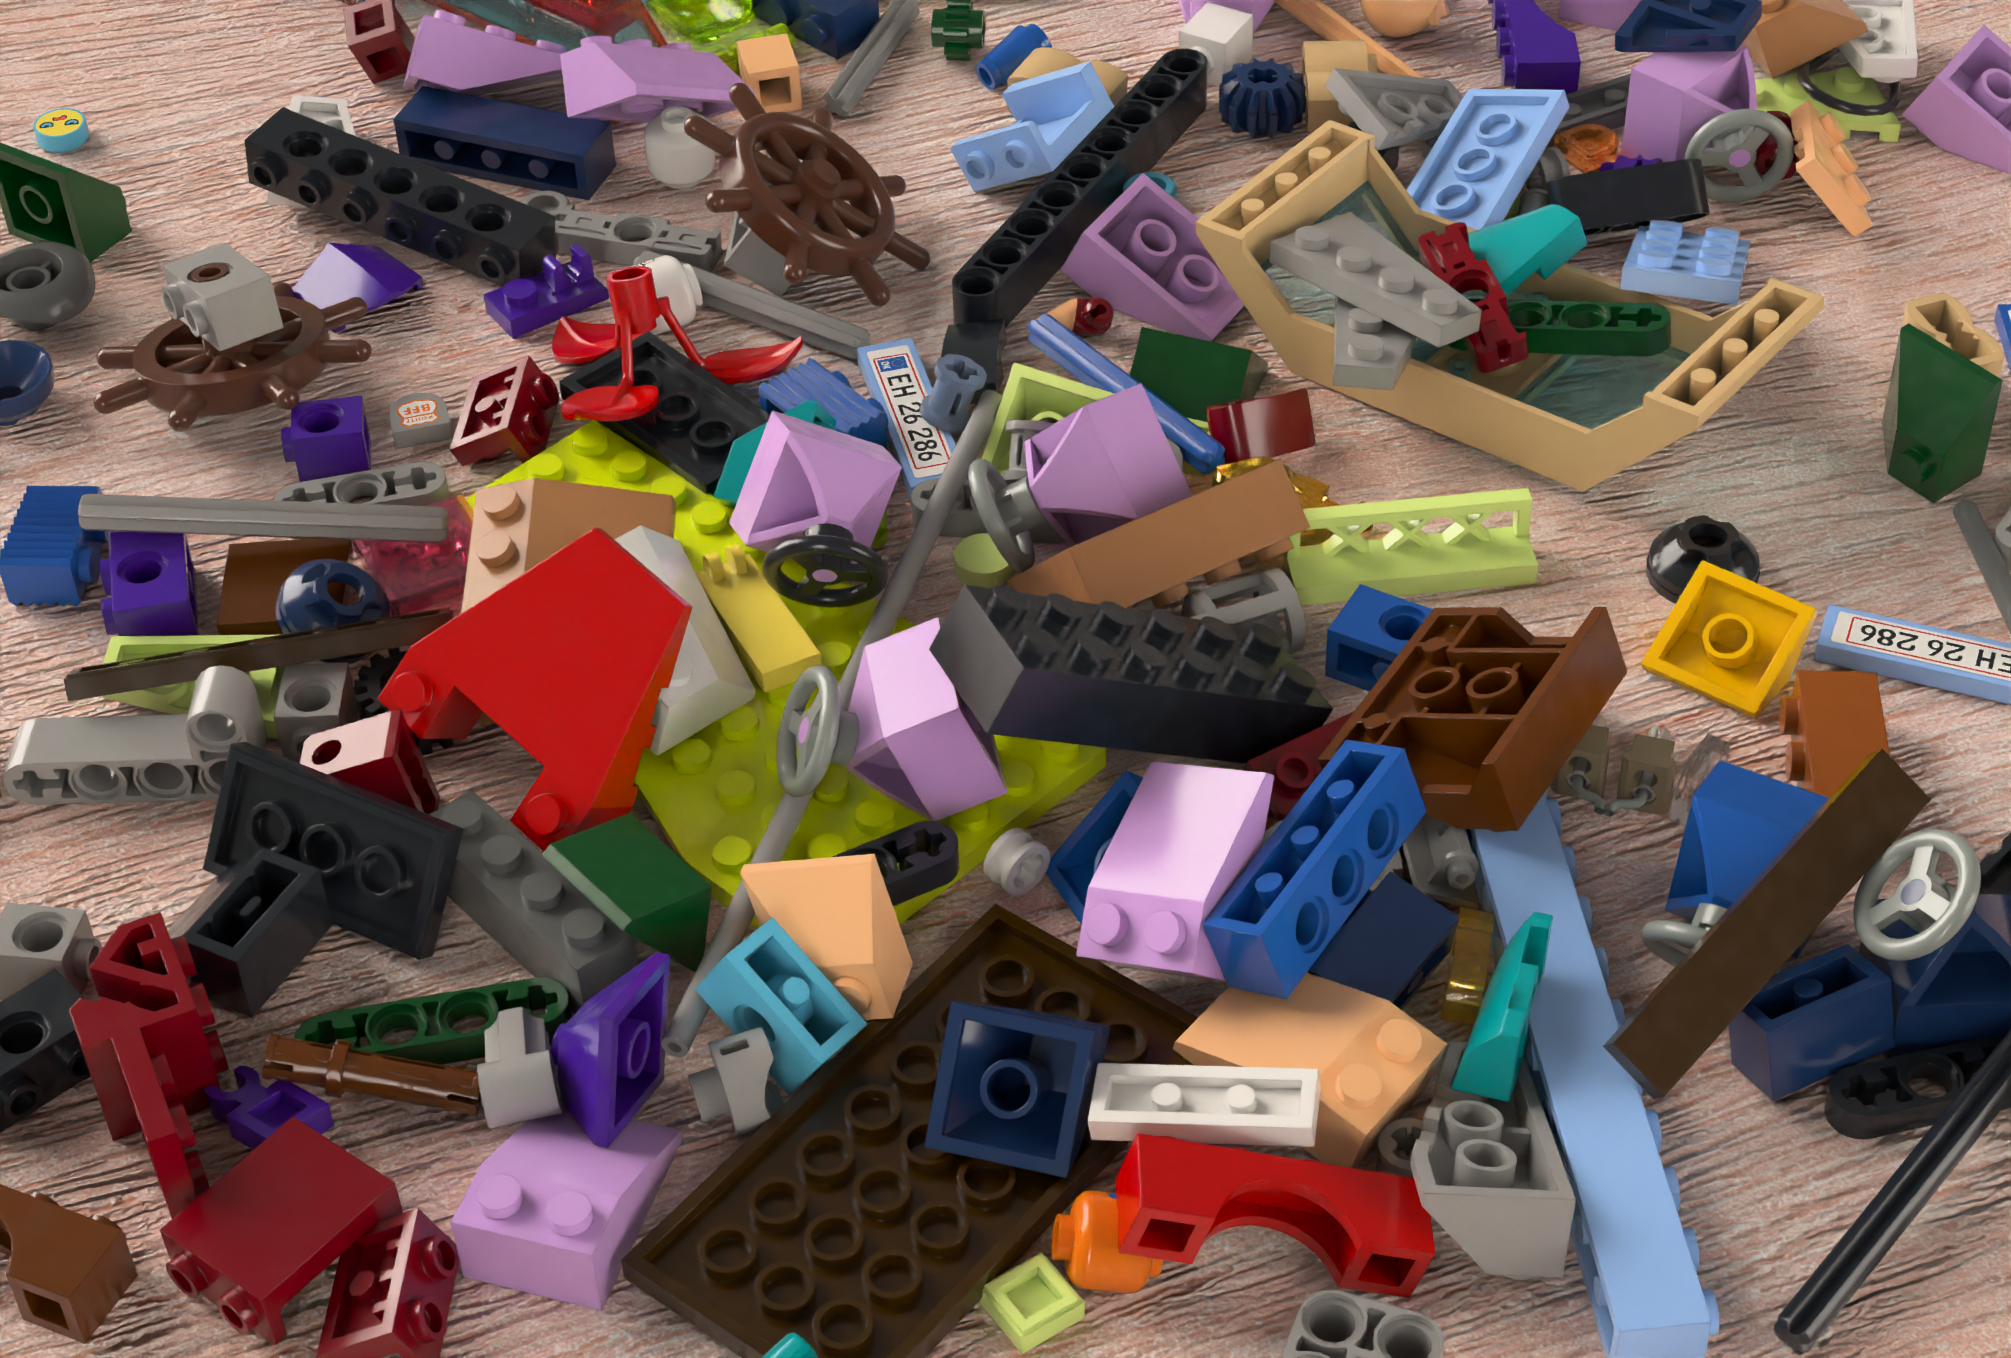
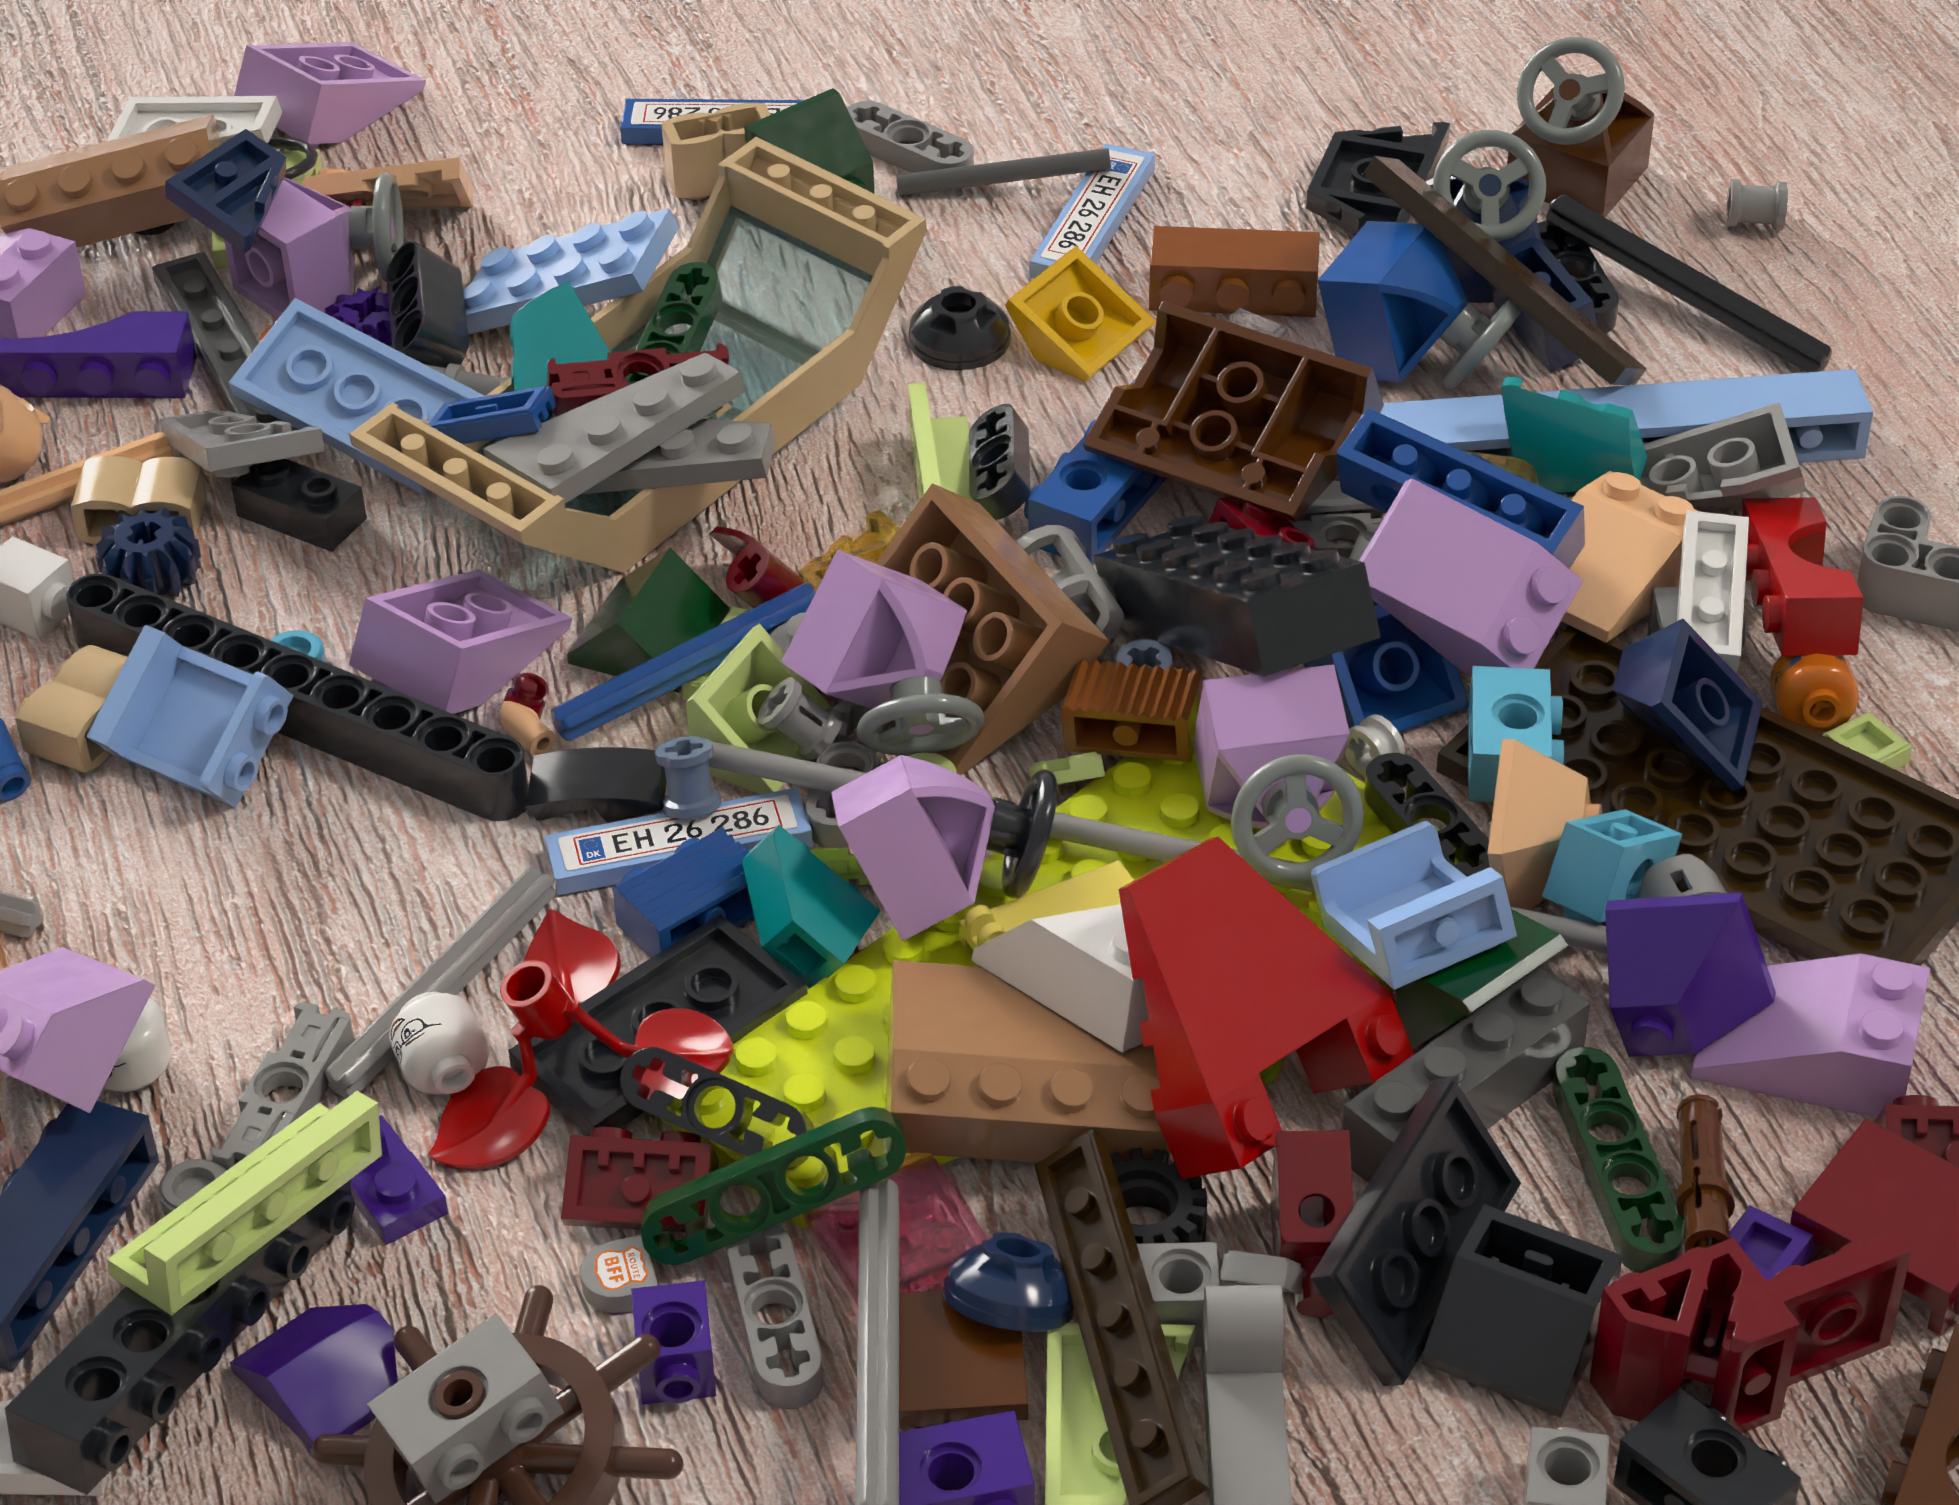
camera: 90 degrees left, 0 degrees up
(280, 727) = (1260, 1269): none -> light grey tile
(446, 458) = (767, 1175): none -> dark green beam
(460, 194) = (250, 1203): none -> yellowish green fence
(519, 1070) = (1712, 1055): light grey piece -> none
(534, 421) = (681, 1071): none -> black beam
(683, 822) = (1409, 907): none -> light blue panel
(795, 212) = (336, 893): reddish brown brick -> none
(983, 934) = (1509, 706): none -> medium azure brick
(1393, 218) = (495, 415): none -> blue tile
(1450, 580) = (999, 461): none -> black beam

